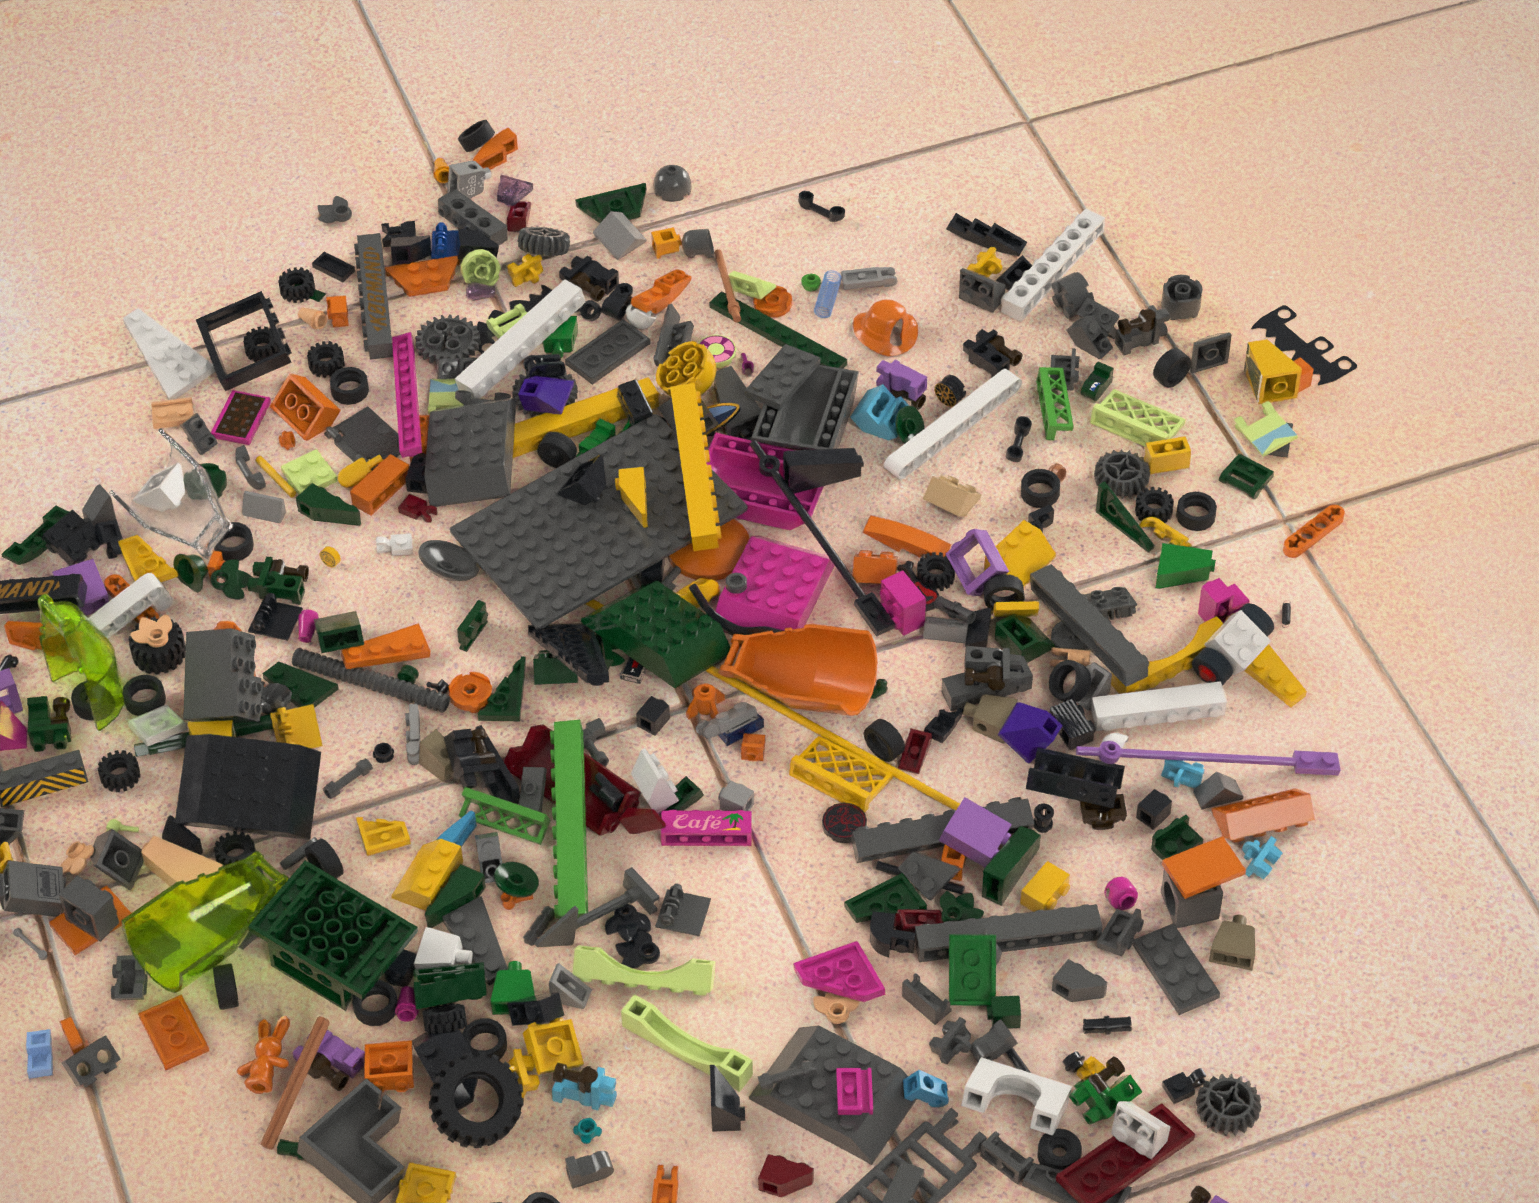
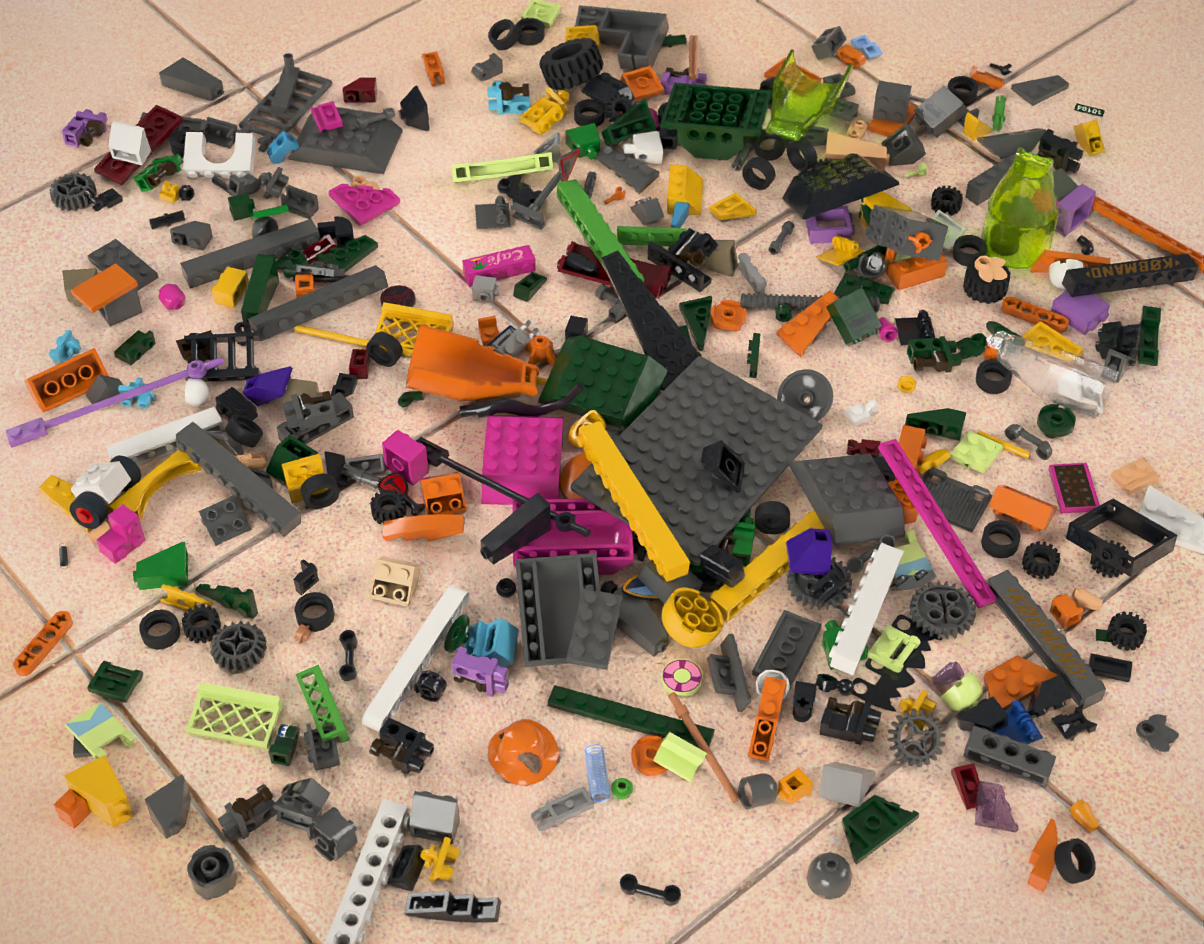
camera: 160 degrees right, 0 degrees up
(77, 856) = (931, 143): light nougat plate -> none
(109, 534) = (1091, 345): black plate -> none
(131, 603) = (1026, 301): white beam -> none
(198, 434) = (1092, 451): dark grey hips -> none
(263, 507) = (985, 413): light grey slope -> none
(267, 1056) = (719, 63): orange animal -> none
(287, 440) = (1016, 474): orange plate -> none
(296, 856) = (781, 181): dark grey tile -> none
(383, 748) = (766, 258): black plate -> none
(441, 686) = (754, 311): black hand -> none
(462, 887) = (656, 181): dark green slope -> none
(467, 178) = (1045, 798): light grey torso -> none
(516, 879) = (617, 195): dark green dish -> none
(533, 788) = (640, 255): dark grey plate -> none
(536, 1009) = (559, 120): black slope -> none
(633, 492) = (673, 464): yellow slope -> none
(641, 820) = (546, 249): dark red slope -> none
(653, 781) = (549, 274): white slope -> none
(653, 1026) = (420, 130): yellowish green arch -> none
(736, 583) = (551, 423): dark grey tile -> none
(746, 364) = (644, 670): magenta hand -> none
(972, 585) = (349, 502): medium lavender window -> none
(975, 832) = (289, 288): medium lavender brick -> none
(1024, 551) = (318, 537): yellow slope -> none
(1120, 932) = (166, 271): dark grey bracket -> none
(1154, 809) = (156, 361): black brick -> none
(1167, 455) = (195, 669): yellow brick -> none
(1172, 367) = (207, 770): black tyre -> none
(1288, 340) = (65, 858): black piece -> none

